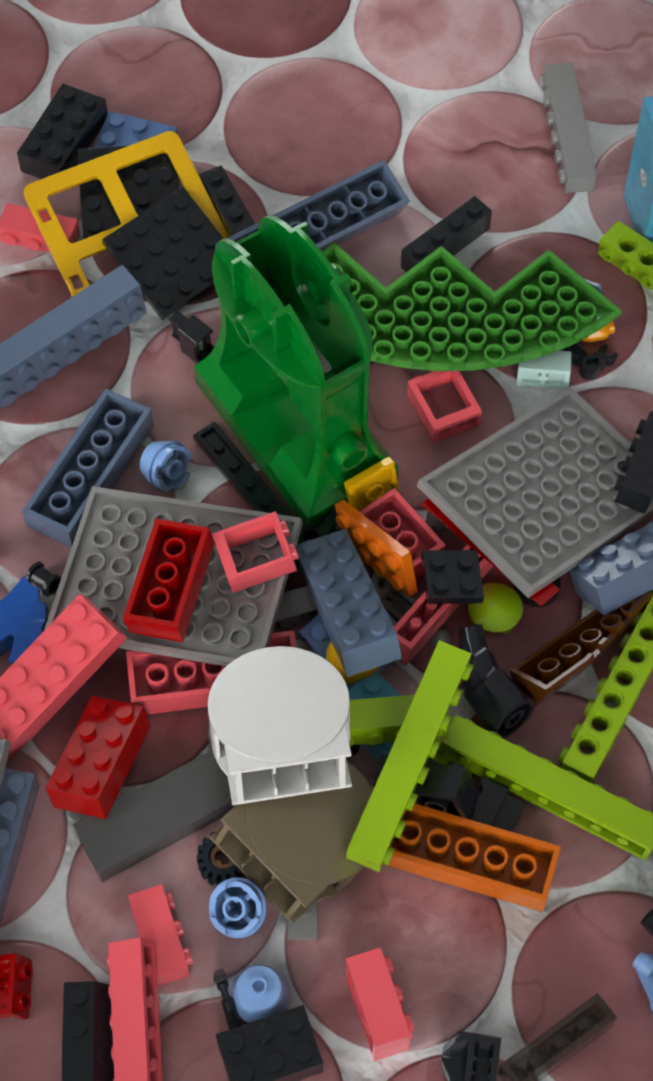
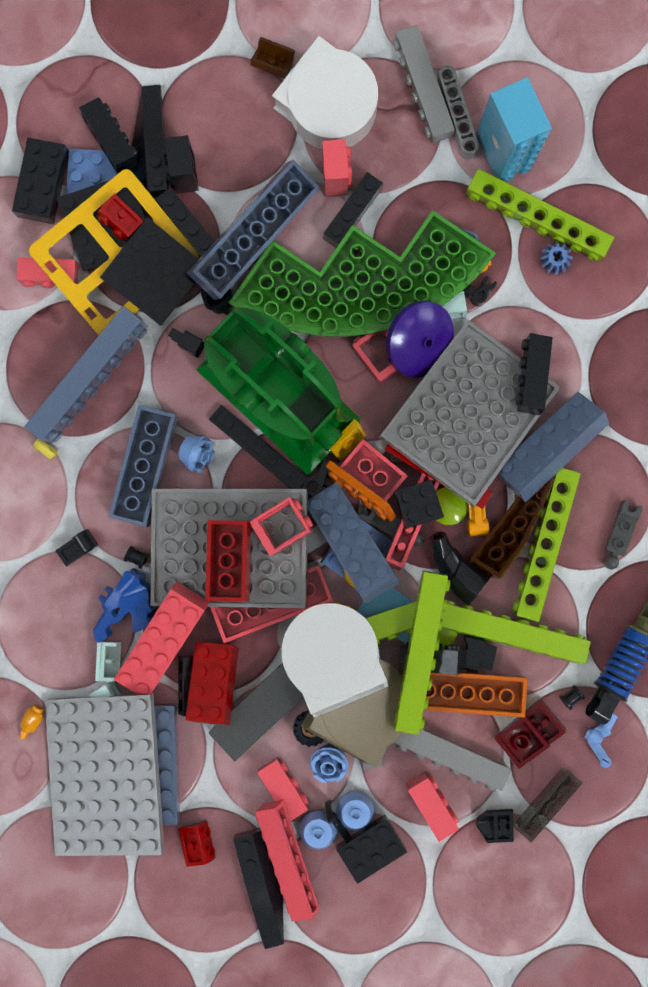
camera: 10 degrees left, 25 degrees up
(62, 738) = (184, 677): none -> black plate
(147, 178) = (119, 217): none -> red bracket
(162, 100) = (108, 136): none -> black brick
(194, 1009) = (316, 830): none -> light blue cone
(210, 123) = (148, 141): none -> black wedge
(241, 141) = (180, 164): none -> black brick
(387, 66) = (273, 58): none -> reddish brown bracket
(425, 943) = (456, 757): none -> light grey brick
(435, 180) = (336, 167): none -> coral brick
(445, 114) = (329, 96): none -> white brick
(497, 383) = (418, 337): none -> dark purple dish
(532, 630) = (477, 522): none -> light orange piece
(550, 940) = (530, 735): none -> dark red slope
(608, 181) = (458, 103): none -> light grey beam
(624, 901) = (572, 697): none -> black bush

